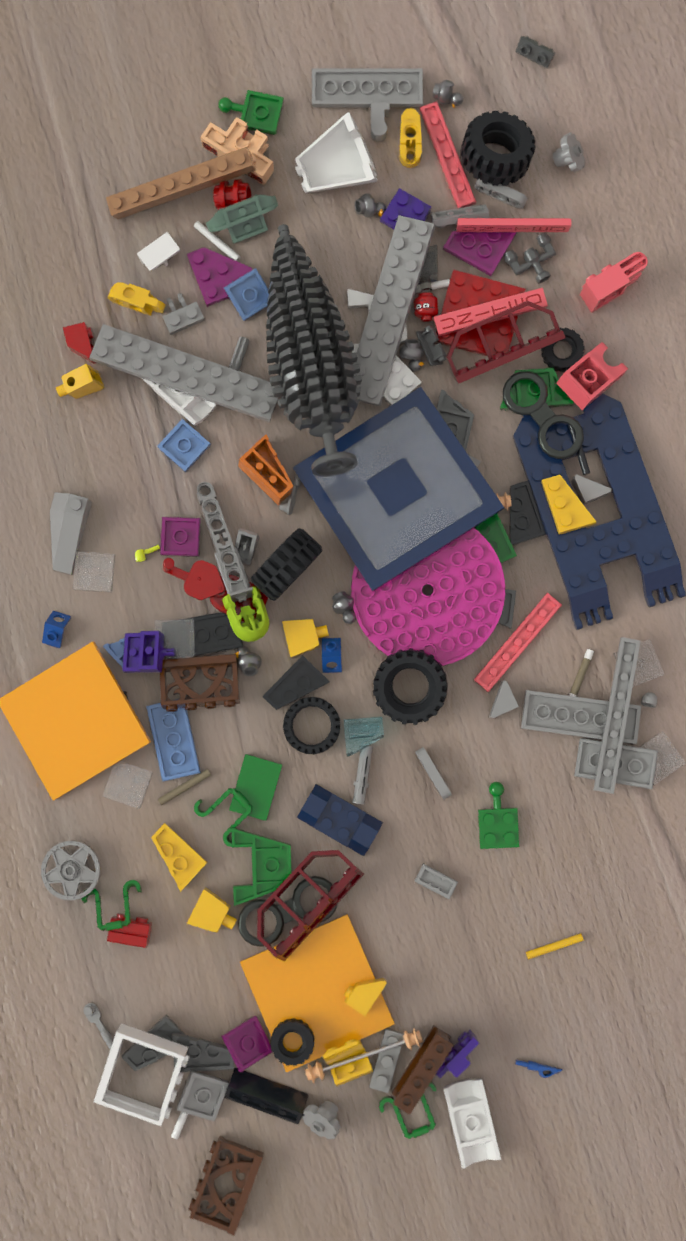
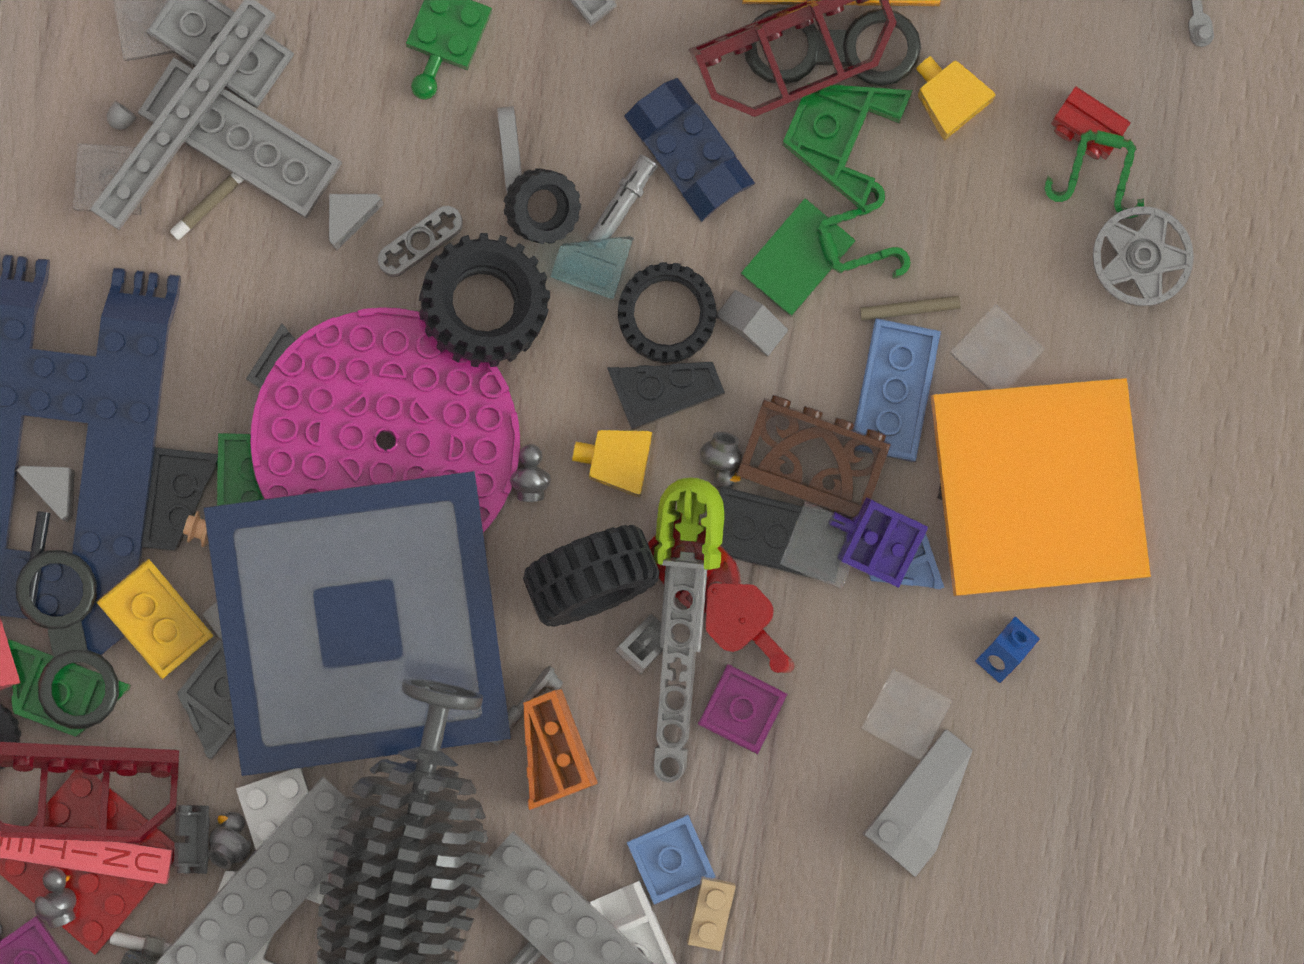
camera: 155 degrees left, 0 degrees up
(140, 554) = (820, 709): neon yellow hand -> none
(151, 427) = (711, 913): none -> tan plate
(178, 855) = (965, 206): yellow wing -> none
(265, 741) = (752, 322): none -> light grey slope
(331, 653) = (584, 411): blue bracket -> none
(417, 751) = (517, 206): none -> black tyre
(425, 306) = (170, 909): red head -> none
(462, 690) = (395, 249): none -> light grey beam
(482, 282) = (58, 905): none -> flat silver animal
(503, 446) = (154, 618): none -> yellow tile
(517, 642) = (281, 299): coral tile -> none
(565, 506) = (103, 473): yellow wing -> none

